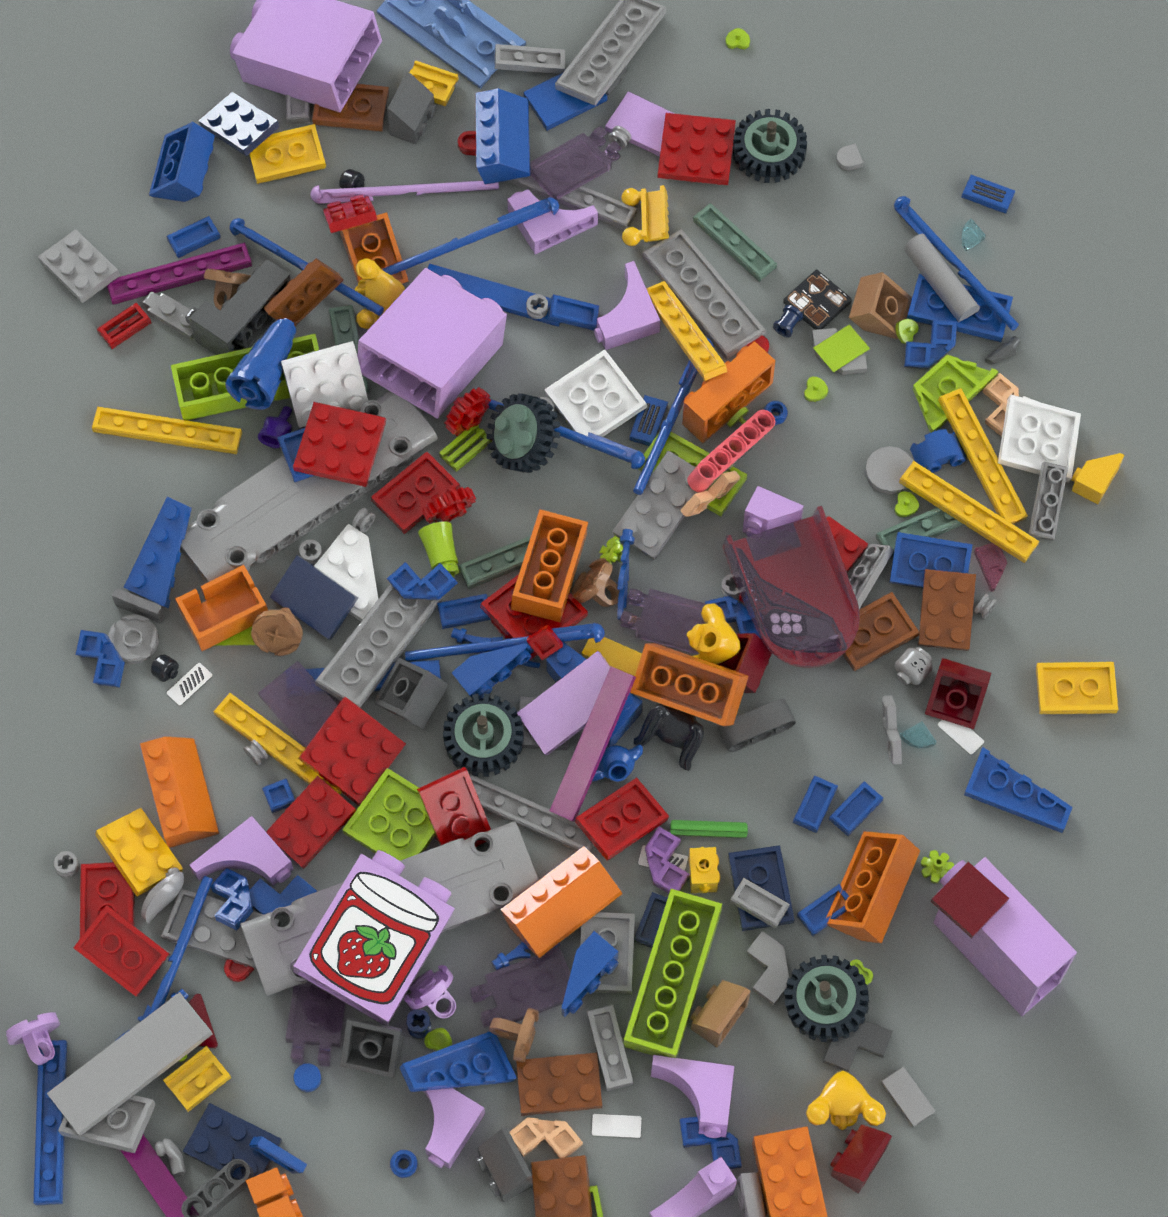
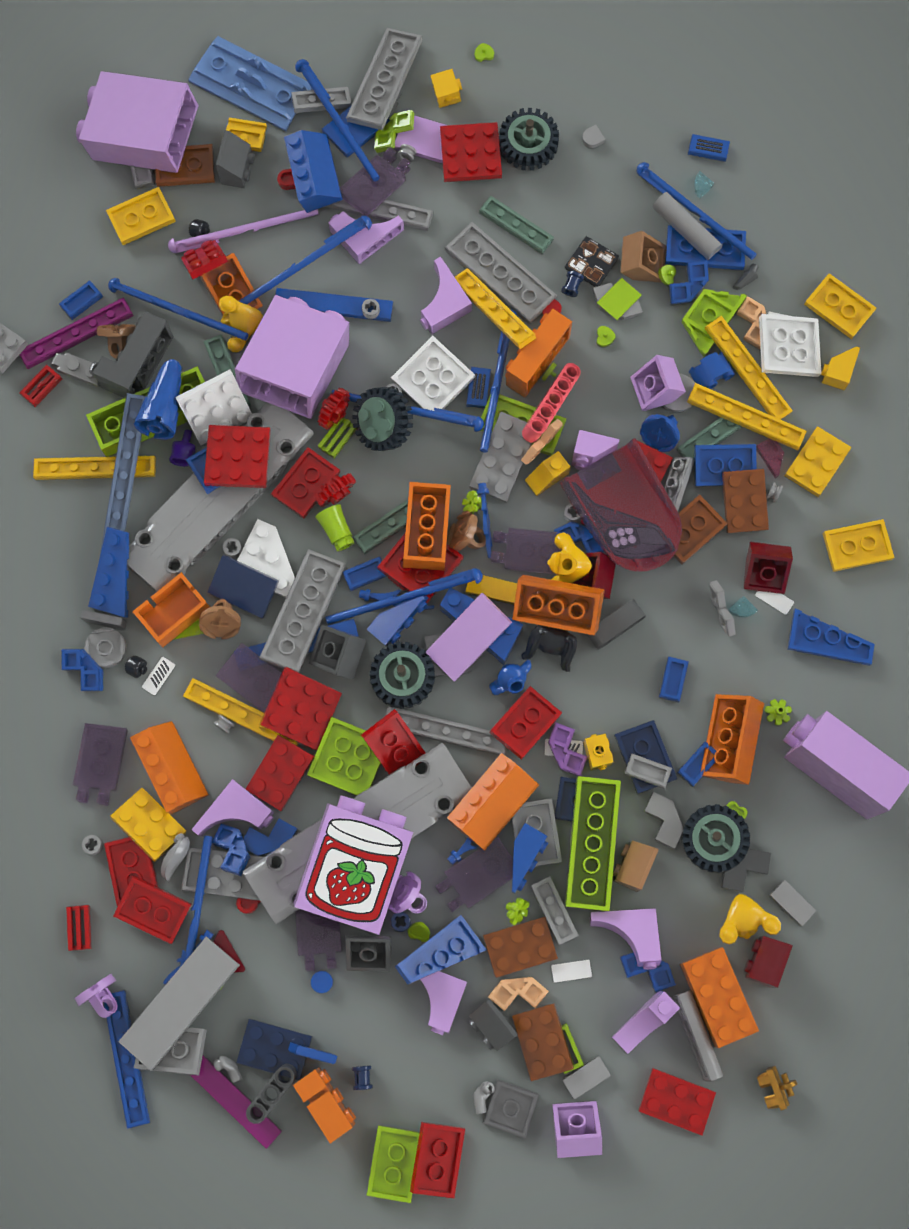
camera: 10 degrees left, 10 degrees up
(31, 935) = (70, 927): none -> red tile
(96, 768) = (99, 761): none -> clear purple tile
(182, 163) = (58, 239): blue slope -> none
(197, 1079) = (235, 1001): yellow plate -> none
(203, 432) = (124, 466): none -> sand blue tile
(239, 123) = (97, 197): plate -> none
(278, 795) = (250, 755): blue tile -> none
(304, 292) = (181, 333): dark orange plate -> none
(331, 1199) = (362, 1077): none -> dark blue bush
(363, 520) = (269, 513): light grey bush -> none
(398, 1157) = (412, 1044): blue plate -> none
(430, 587) = (335, 561): blue tile -> none
(516, 18) = (303, 66): none -> blue bar
(520, 1033) = (481, 915): medium nougat tile -> none
(544, 642) = (436, 591): red tile -> none
(564, 1038) = (517, 910): none -> lime plant
(573, 312) = (400, 308): blue tile -> none
(592, 744) = (492, 668): tile -> none
(617, 101) = (398, 123): none -> lime tile
(654, 215) = (448, 215): yellow gear -> none
(683, 71) = (446, 88): none -> yellow head
(709, 828) = (594, 716): bright green axle -> none
(710, 534) = (548, 473): none -> yellow slope
(779, 407) = (578, 357): blue plate -> none
(856, 808) = (706, 677): blue tile -> none
(858, 510) = (660, 432): none -> blue tile
(867, 452) = (657, 383): none -> lavender slope
(906, 505) = (695, 418): lime piece -> none
(913, 666) = (728, 552): light grey head -> none
(969, 900) = (822, 749): dark red tile -> none
(1046, 515) = (806, 408): light grey tile -> none
(1047, 581) = (817, 461): none -> yellow plate
(1111, 404) = (840, 306): none -> yellow plate

